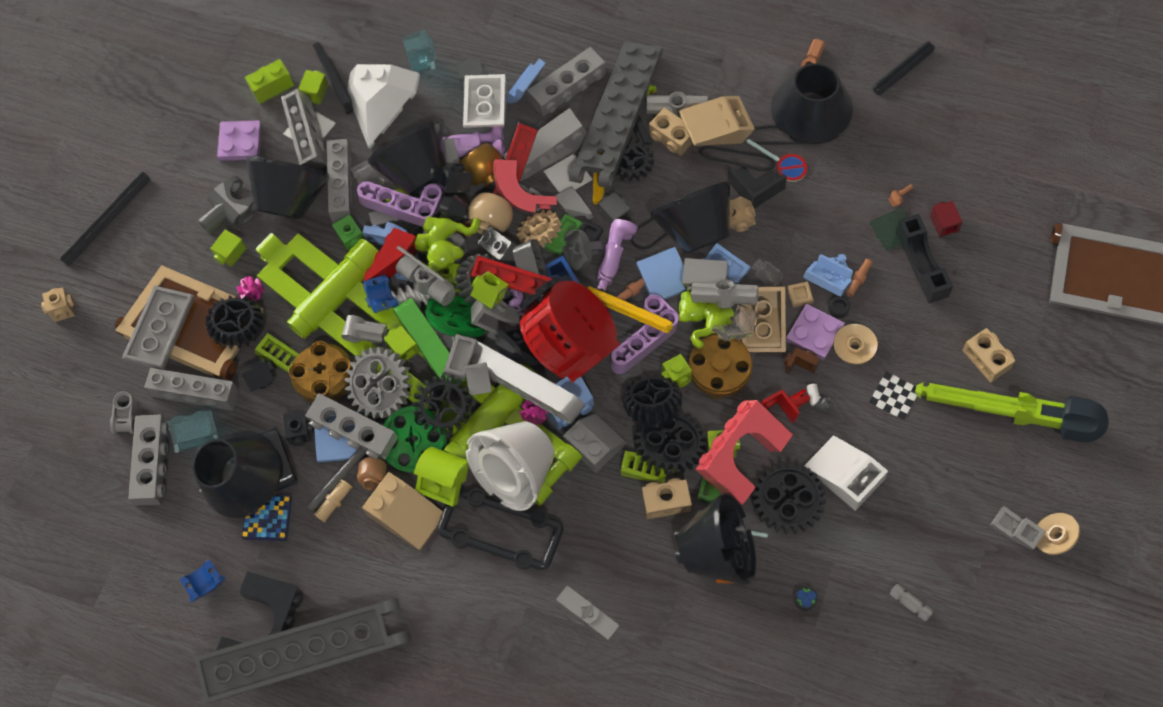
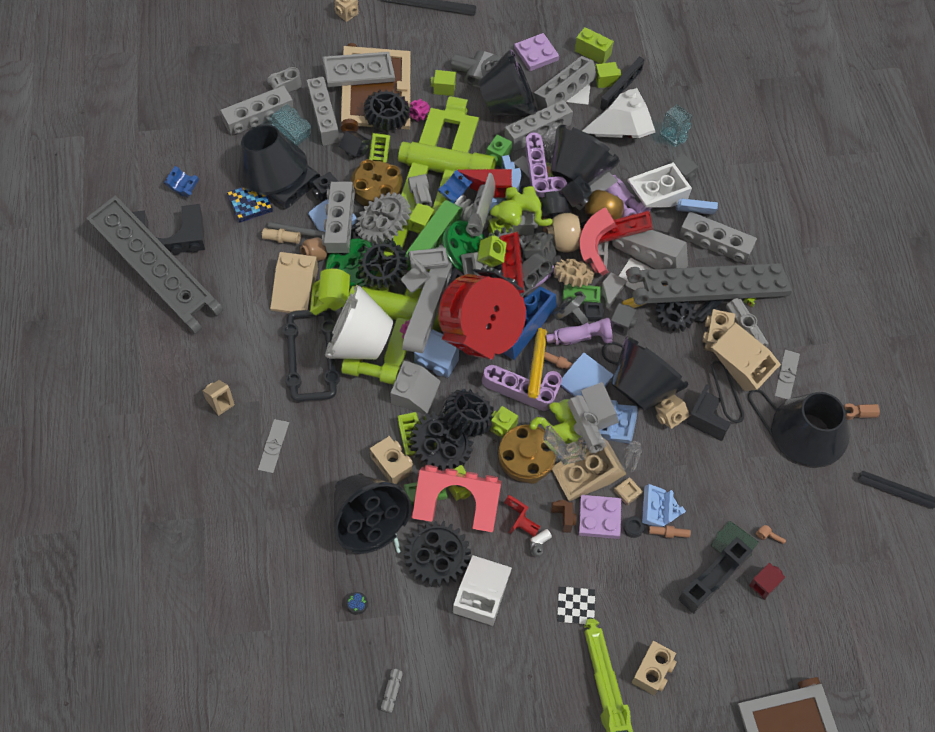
camera: 55 degrees right, 5 degrees down
(505, 644) = (218, 396): none -> tan slope
(750, 103) = (787, 374): none -> light grey piece
(791, 164) = (744, 437): piece -> none
(855, 335) = (606, 543): tan dish -> none

